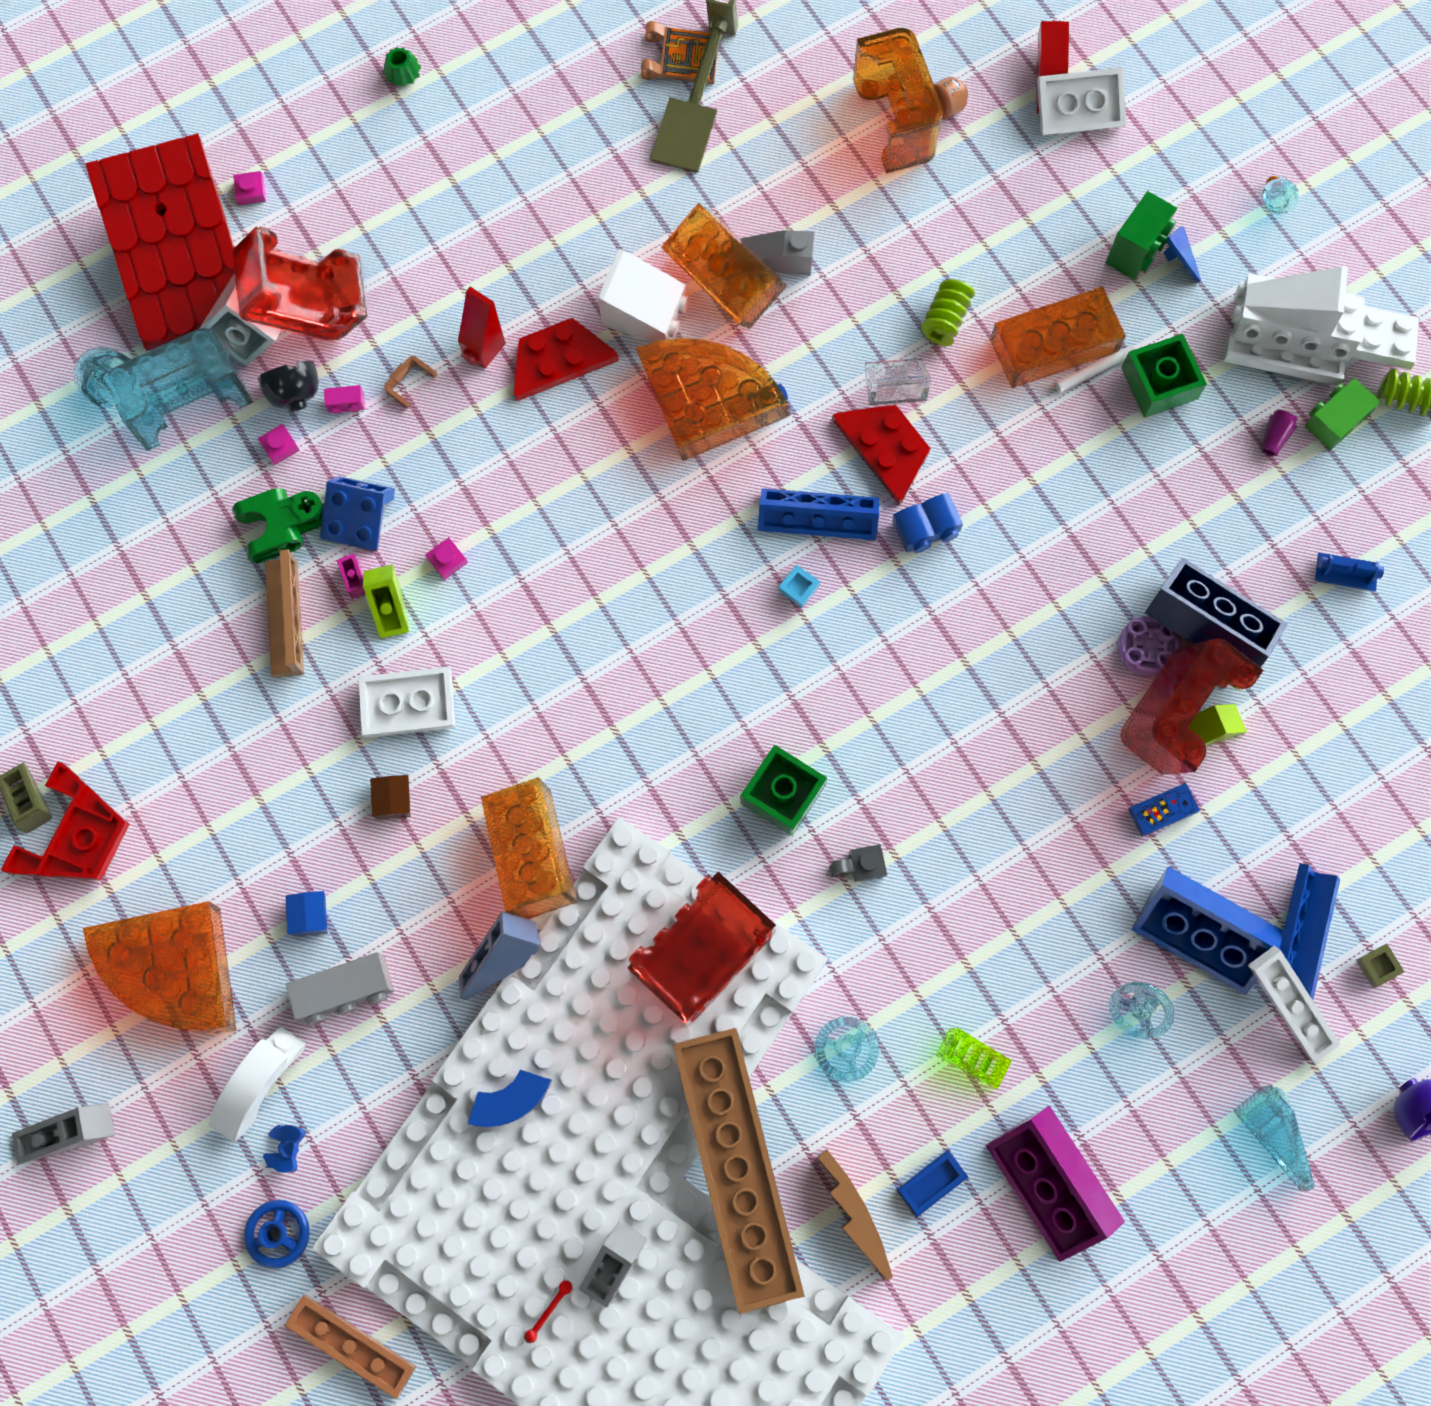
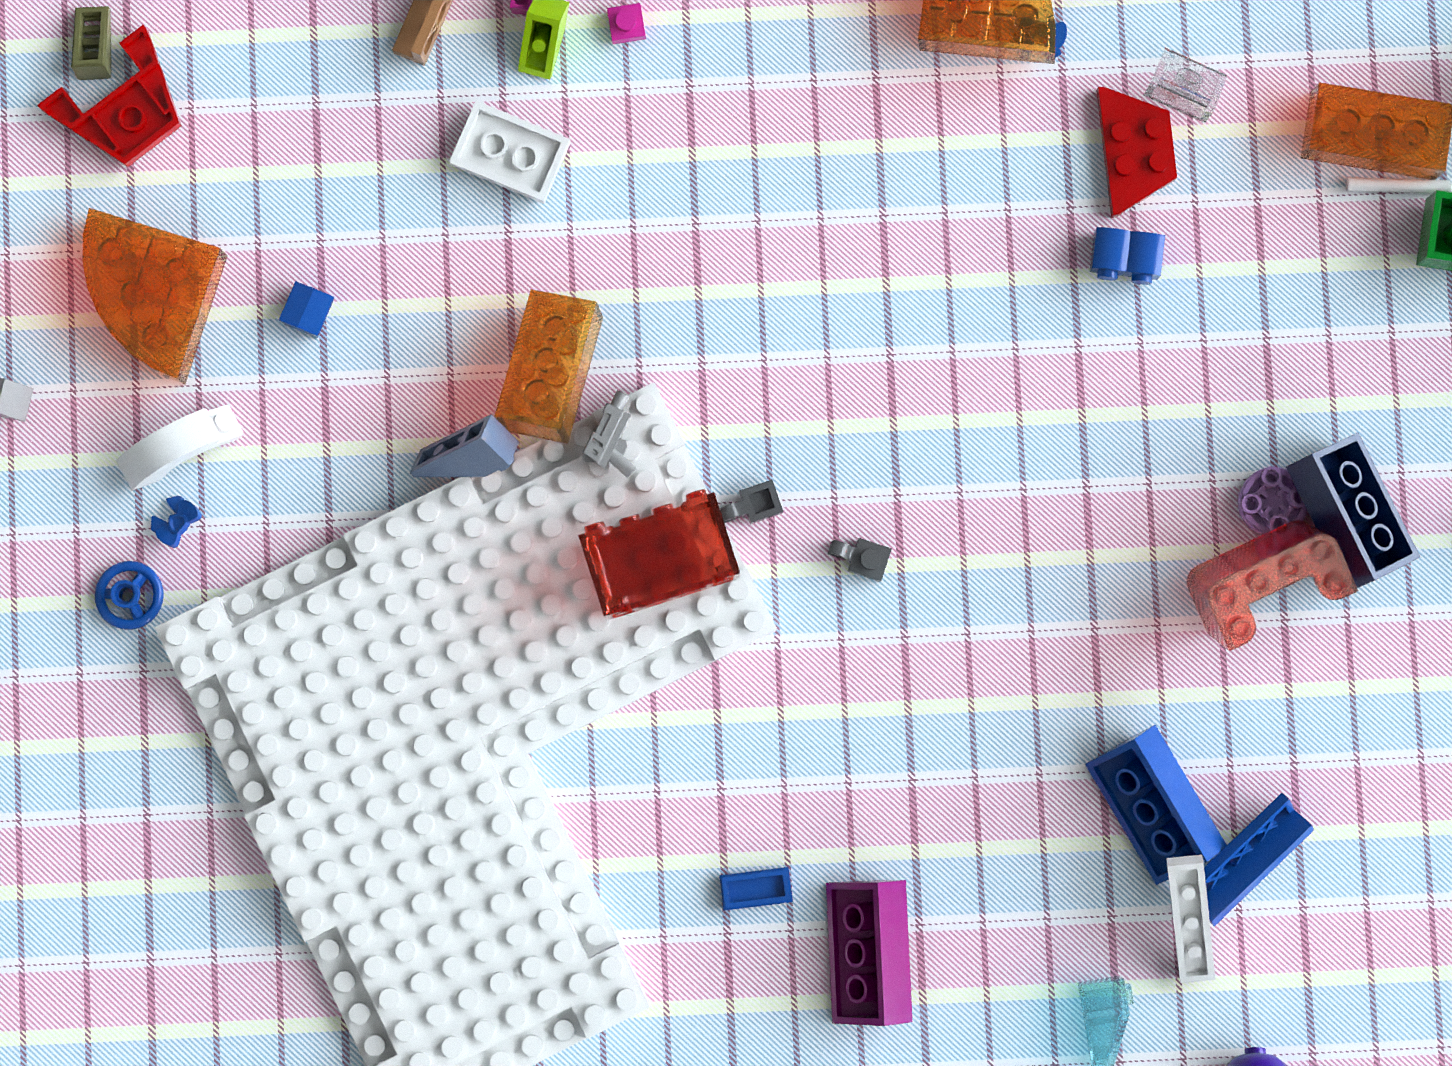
camera: 25 degrees right, 10 degrees up
(340, 989) = (301, 400): light grey brick -> none
(350, 1346) = (145, 733): nougat plate -> none
(390, 797) = (444, 239): reddish brown piece -> none
(509, 1103) = (404, 597): blue tile -> none
(564, 1288) = (366, 791): red hinge -> none
(607, 884) = (606, 442): none -> light grey piece
(612, 1263) = (420, 794): light grey arch -> none
(738, 1171) = (581, 774): medium nougat plate -> none
(754, 867) = (757, 502): none -> dark grey plate
(783, 790) = (826, 444): green brick -> none
(799, 586) = (960, 248): medium azure plate -> none
(821, 516) = (1022, 185): blue fence -> none
(823, 1041) = (773, 716): clear light blue piece -> none
(860, 1225) = (666, 890): medium nougat slope -> none
(947, 311) = (1278, 39): lime piece -> none
(949, 1045) = (849, 771): clear neon green slope -> none
(1142, 1005) = (1047, 840): clear light blue piece -> none
(1164, 809) = (1187, 669): blue tile -> none
(1218, 723) = (1287, 615): lime slope -> none
(1380, 965) = (1300, 930): olive plate -> none

